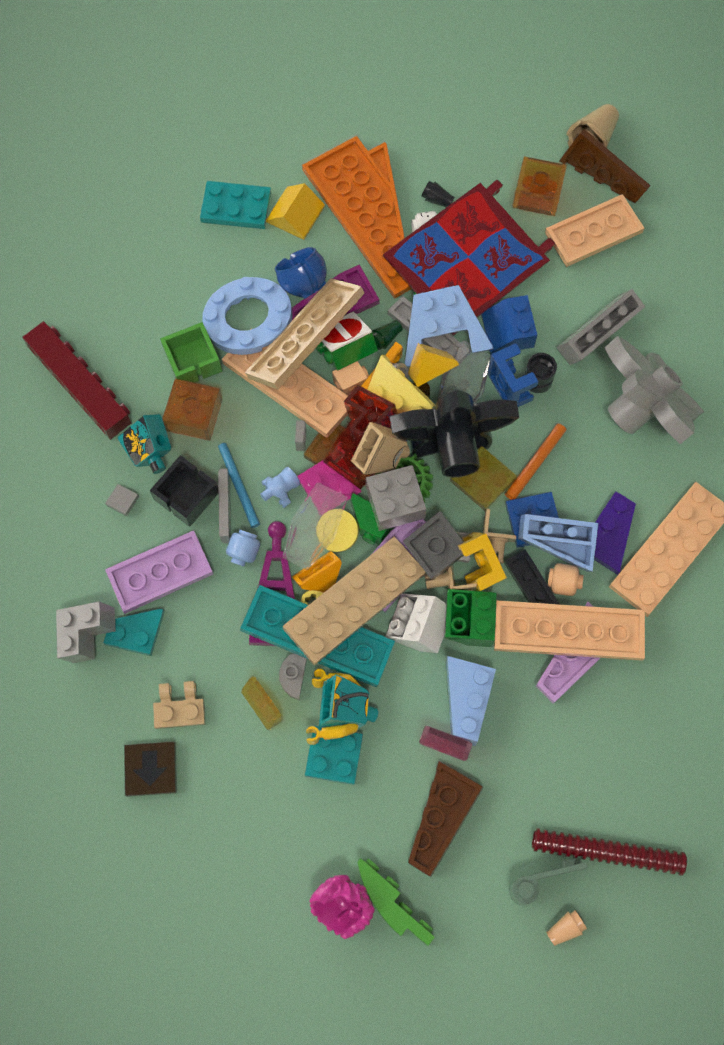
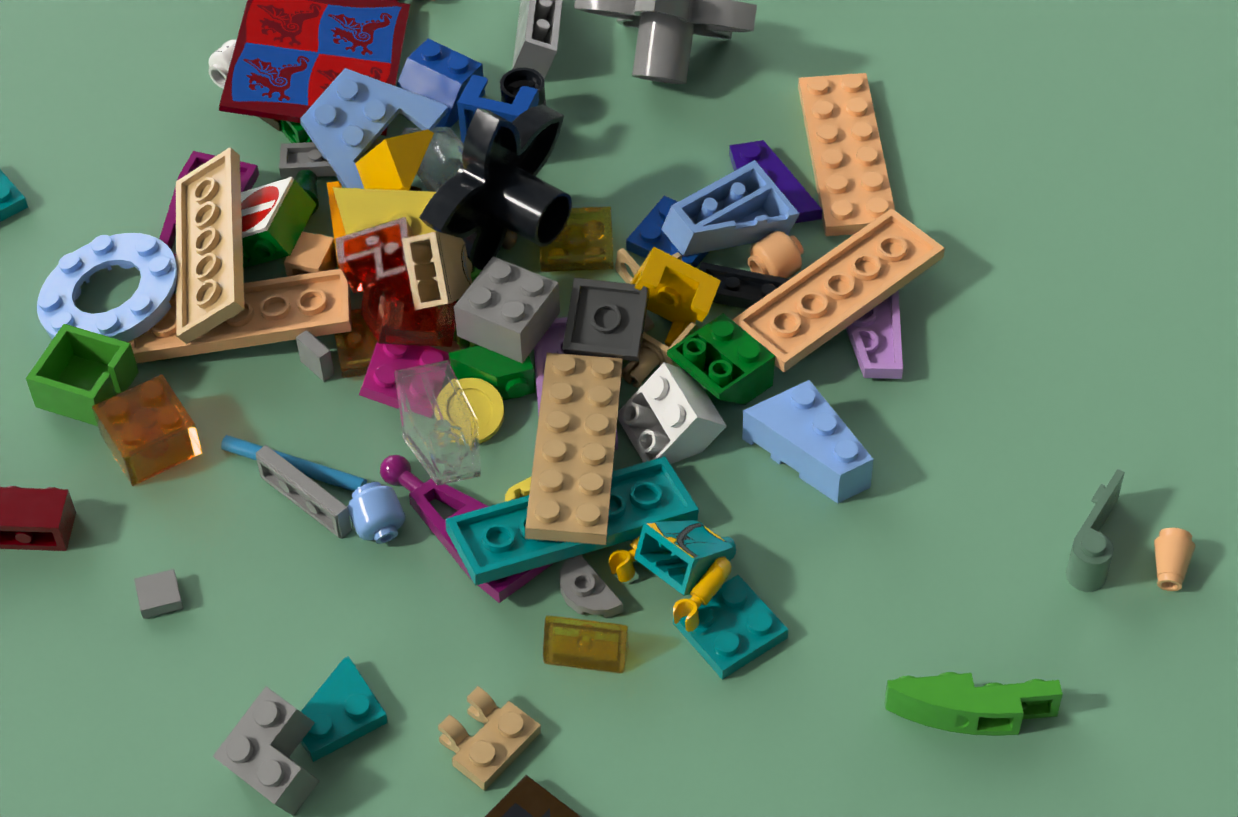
camera: 45 degrees left, 20 degrees down
(147, 442) = (128, 499): teal torso -> none
(159, 572) = (296, 623): lavender plate -> none
(183, 492) = (236, 521): black piece -> none
(279, 486) = (348, 419): light blue piece -> none
(296, 210) = (49, 159): yellow slope -> none
(302, 273) = (134, 198): blue piece -> none
(320, 575) = (501, 466): light orange slope -> none
(342, 906) = (927, 744): dark pink hair -> none
(364, 200) = (128, 94): orange wing -> none
(437, 194) = (209, 33): black cone -> none
(445, 743) = (839, 499): clear pink slope -> none
(446, 810) = (919, 570): reddish brown wing -> none
(535, 462) = (613, 185): orange piece -> none
(609, 851) = (1122, 453): dark red piece -> none

